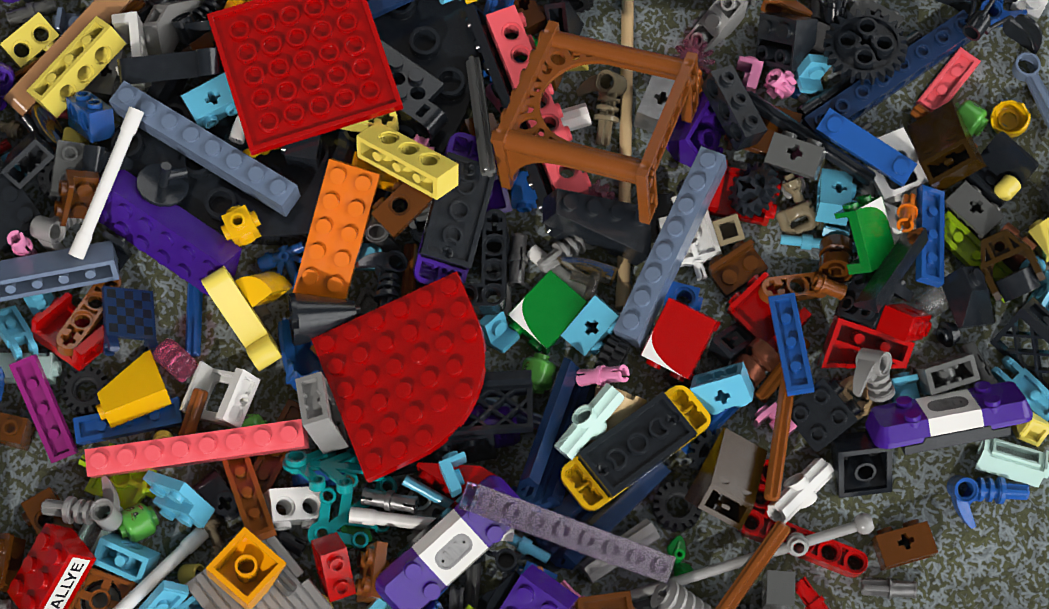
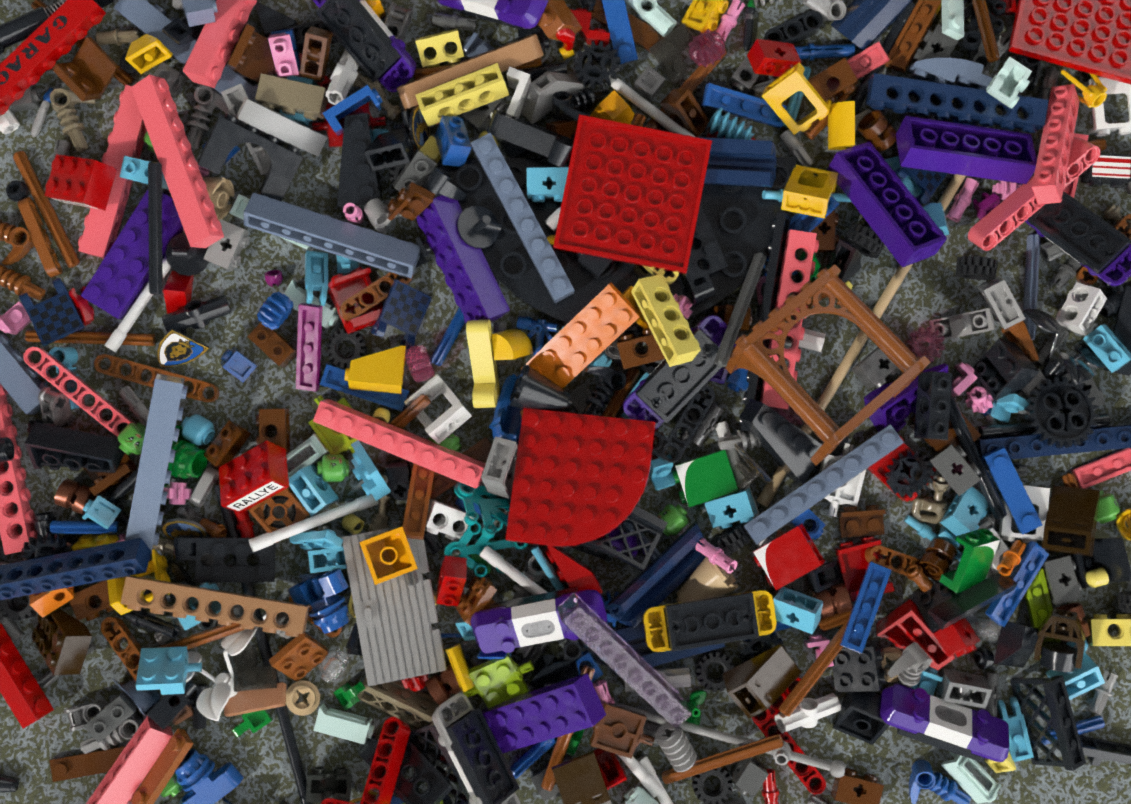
camera: 30 degrees right, 15 degrees up
(84, 235) = (470, 178): white piece -> none
(89, 511) = (300, 445): light grey piece -> none
(240, 225) = (525, 297): yellow brick -> none
(389, 500) = (516, 556): flat silver pin -> none
(452, 477) = (567, 574): medium azure bracket -> none
(589, 421) = (678, 588): light aqua piece -> none
(608, 98) = (839, 346): dark tan piece -> none
(728, 229) = (872, 492): dark tan brick -> none

